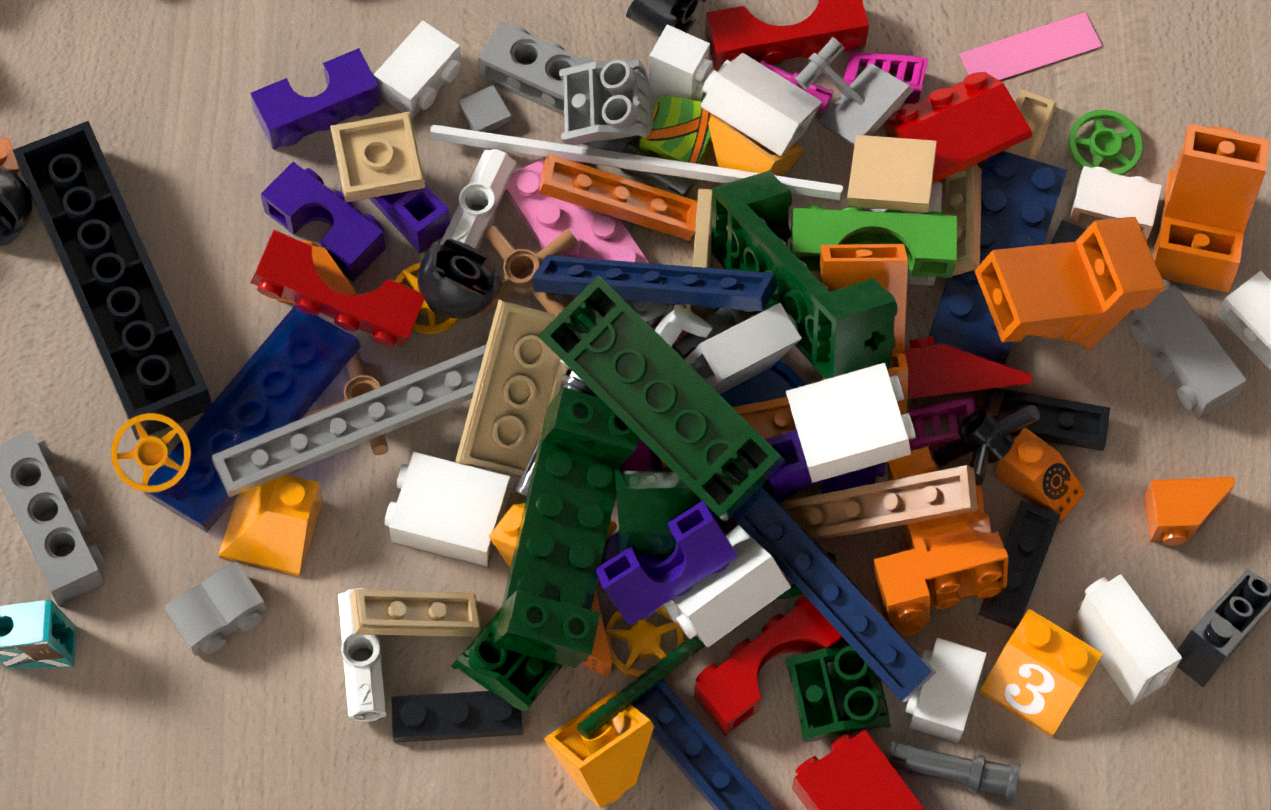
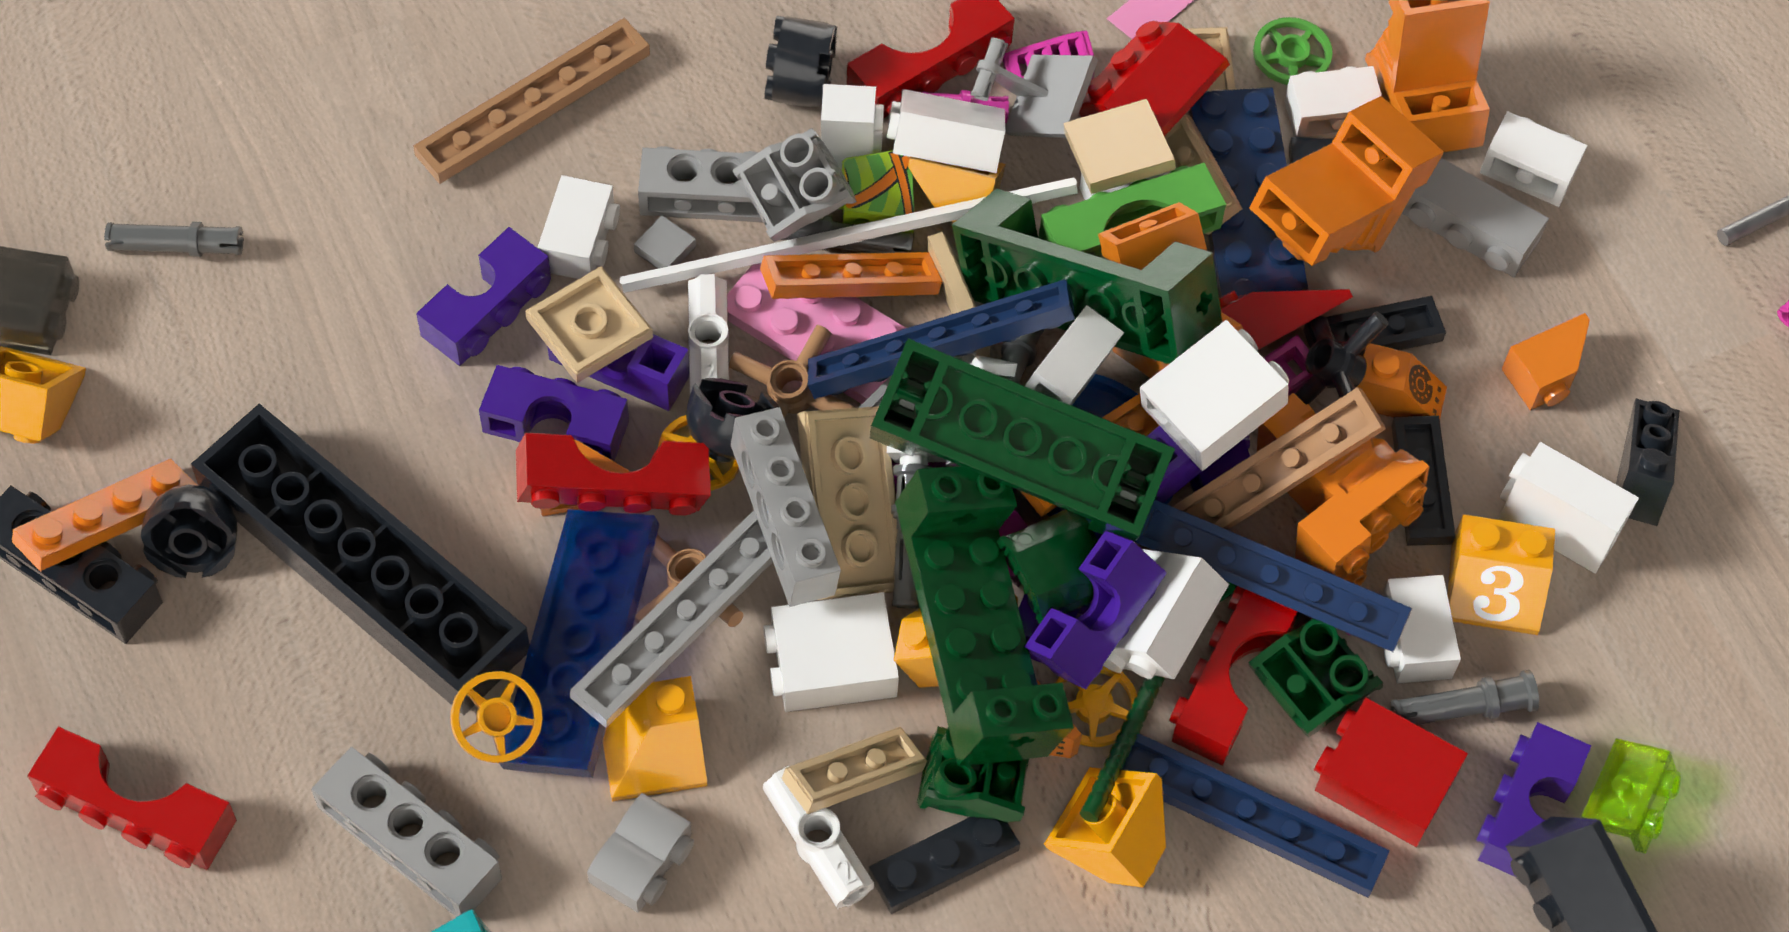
camera: 25 degrees left, 5 degrees down
(453, 373) = (785, 507): none -> light grey brick

